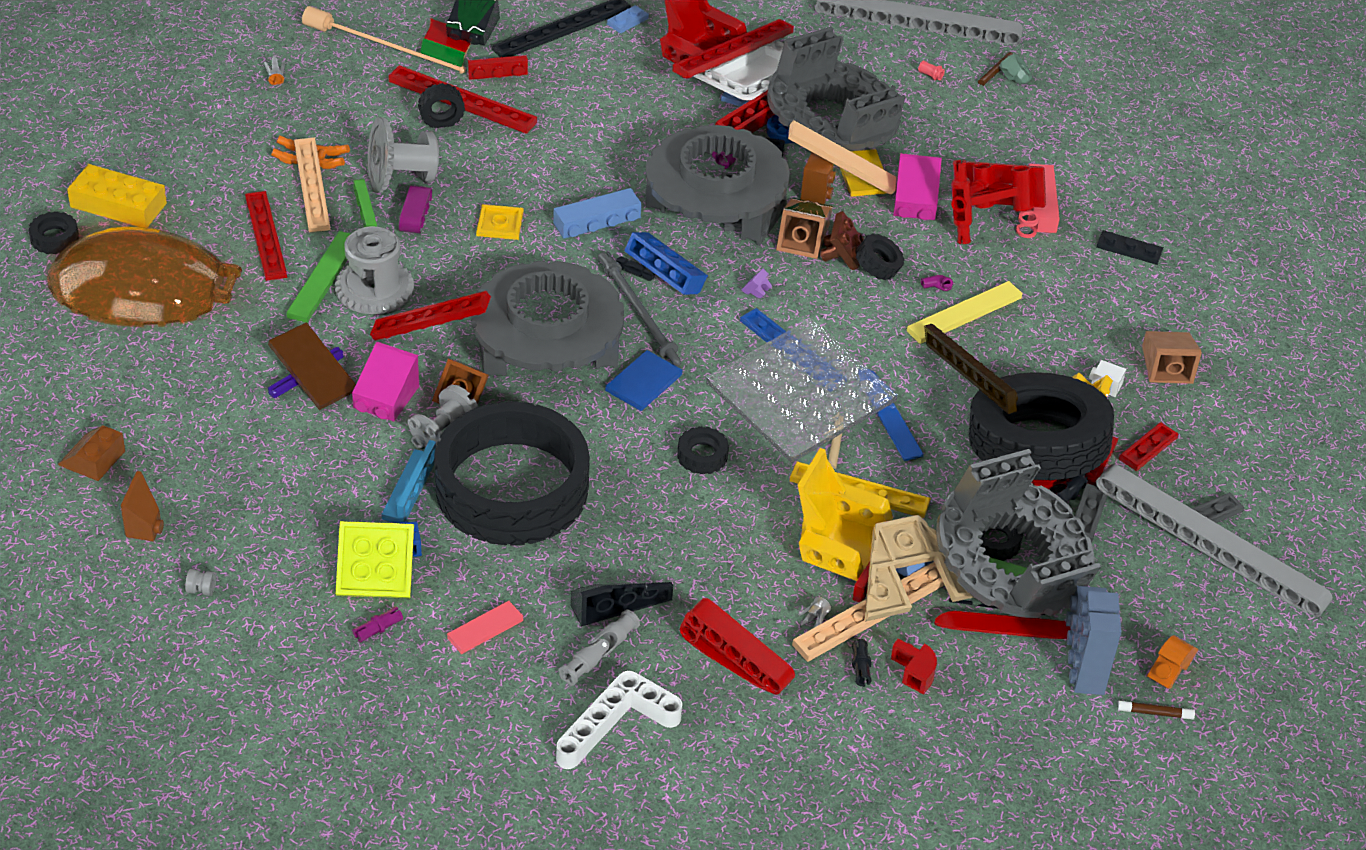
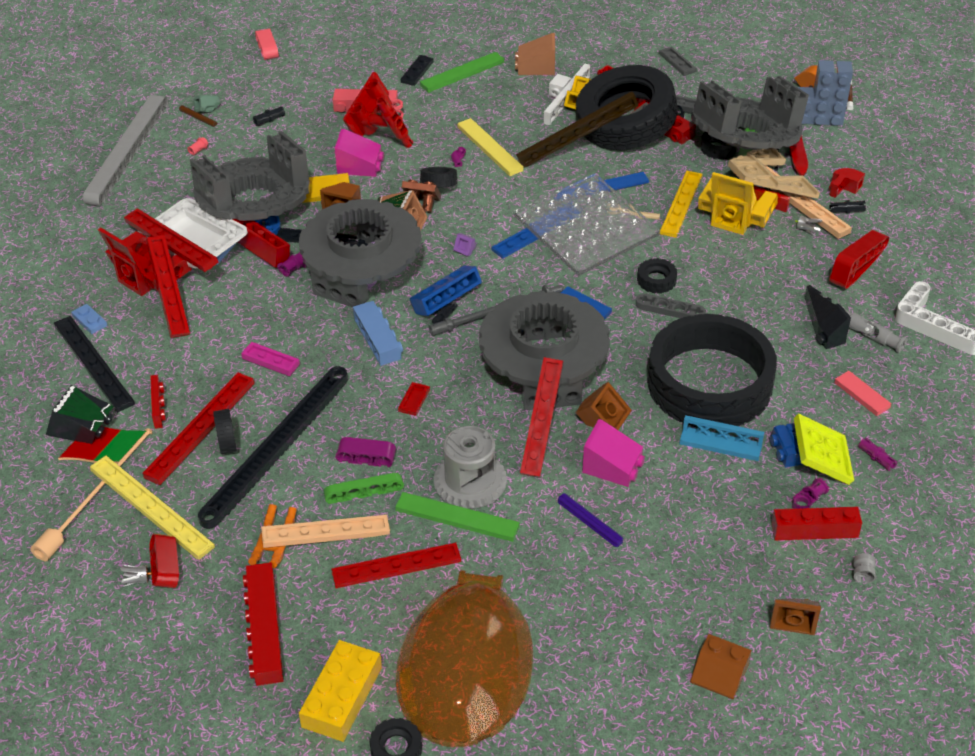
camera: 85 degrees left, 0 degrees up
(204, 149) = (263, 624): none -> red brick
(268, 547) = (816, 523): none -> red brick
(285, 84) = (163, 561): none -> red beam
(312, 365) = (591, 508): reddish brown tile -> none
(317, 551) = (808, 491): none -> magenta connector
(357, 76) = (152, 507): none -> light yellow tile
(387, 155) = (302, 451): light grey piece -> none
(449, 154) = (272, 448): none -> black gear
(453, 404) = (643, 409): light grey piece -> none
(497, 246) = (414, 399): none -> red tile
(500, 222) = (380, 398): yellow tile -> none
(560, 140) = (270, 358): none -> dark pink plate
(648, 462) = (670, 305): none -> dark grey beam
(652, 49) = (167, 286): none -> red plate
(842, 157) = (339, 177): light nougat tile -> none
(1000, 121) = (268, 115): none -> black pin
(1119, 394) = (558, 103): none -> white tile
(1135, 290) = (461, 72): none -> bright green tile
(1158, 111) = (267, 44): none -> coral beam
(1214, 540) = (712, 54): light grey beam -> none

